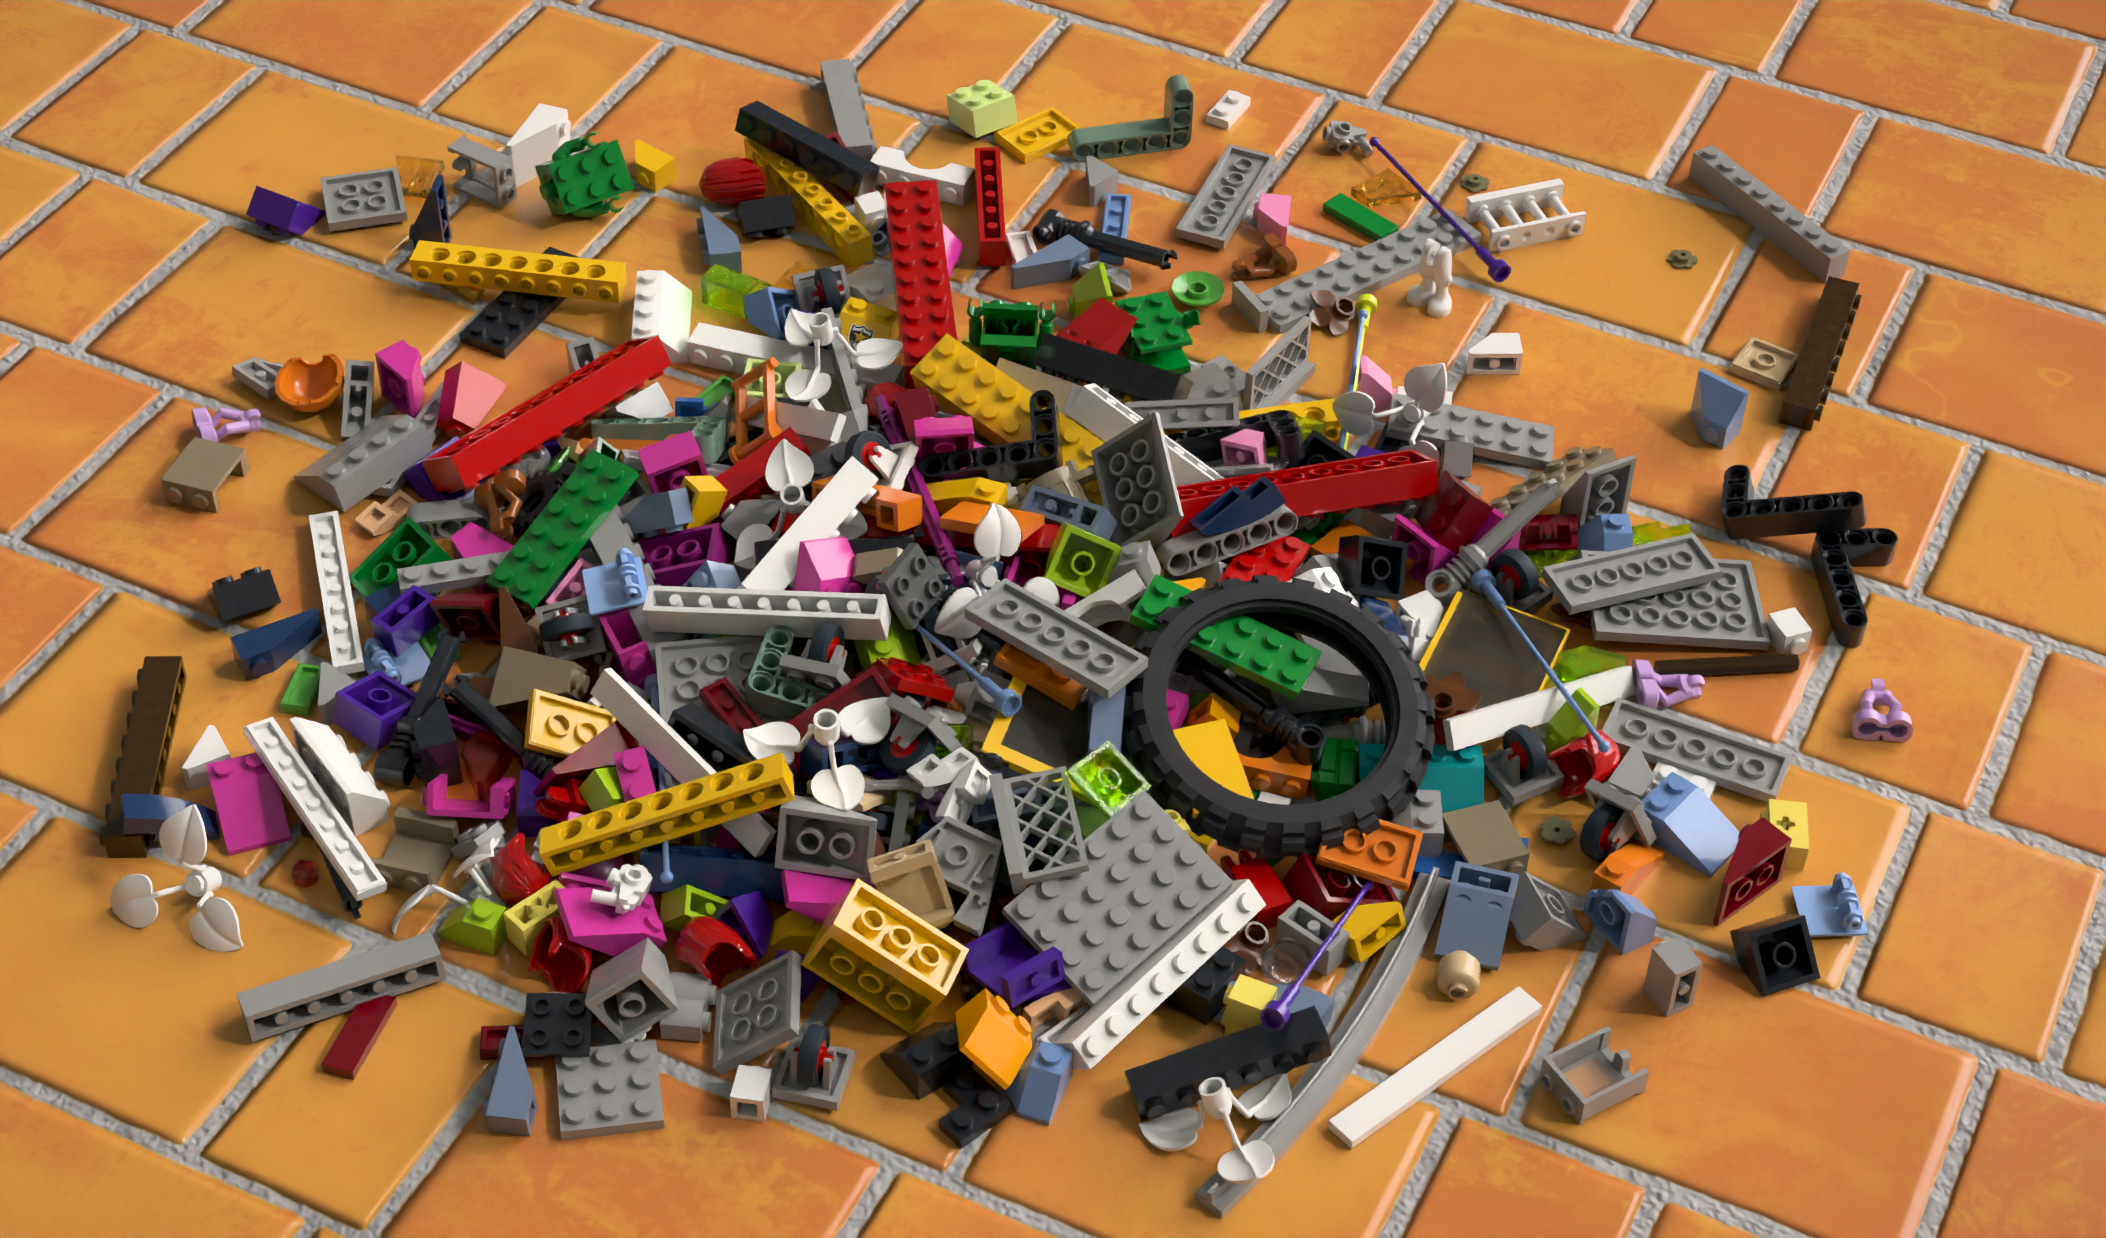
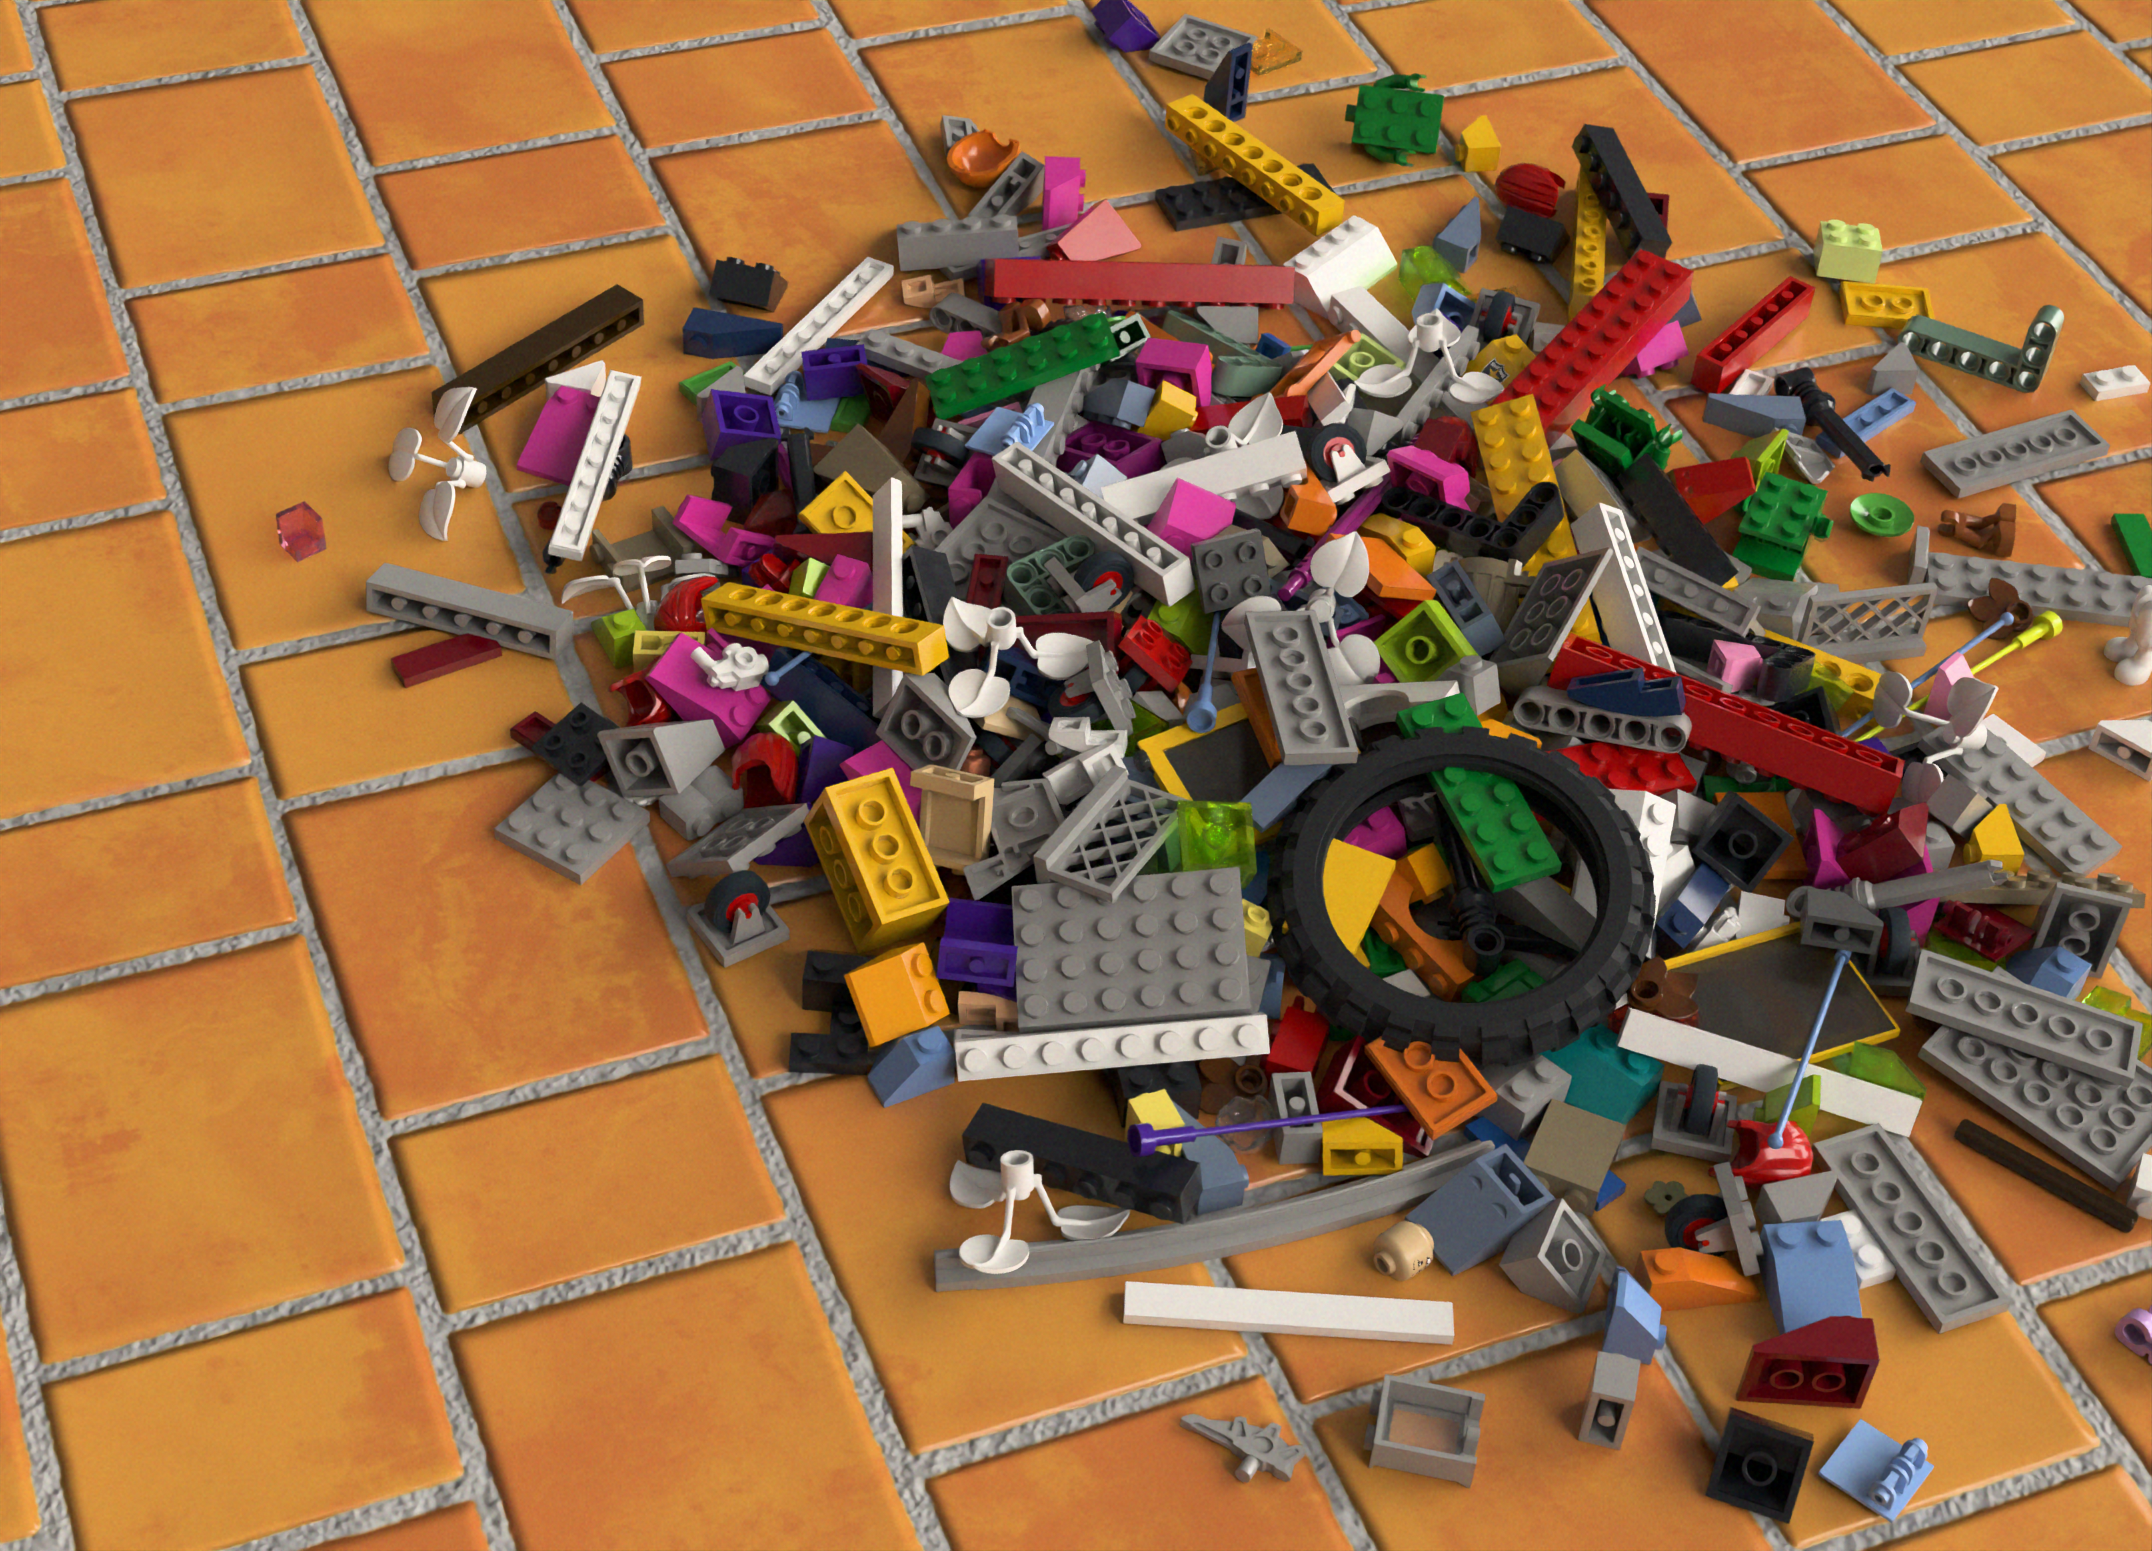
camera: 40 degrees right, 0 degrees up
(128, 1016) = (301, 531): none -> clear pink panel
(147, 813) = (494, 408): dark blue slope -> none
(201, 472) = (826, 176): dark tan panel -> none
(205, 426) = (873, 153): lavender piece -> none
(340, 776) = (652, 454): white slope -> none
(396, 763) = (698, 471): black piece -> none
(401, 549) = (910, 321): green slope -> none
(487, 175) = (1323, 88): light grey window -> none
(512, 1098) = (494, 771): sand blue slope -> none
(537, 140) = (1401, 58): white slope -> none
(751, 1093) = (667, 901): white brick -> none
(847, 106) = (1714, 192): light grey brick -> none
(954, 181) = (1728, 293): white arch -> none
(1273, 214) = (2044, 497): bright pink slope -> none
(1483, 582) = (1838, 922): none -> dark grey slope
(1492, 472) = (1995, 840): none -> yellow slope
(1509, 1162) = (1255, 1446): none -> light grey piece
(1648, 684) = (1922, 1137): lavender piece -> none
(1793, 821) = (1913, 1365): light yellow brick -> none

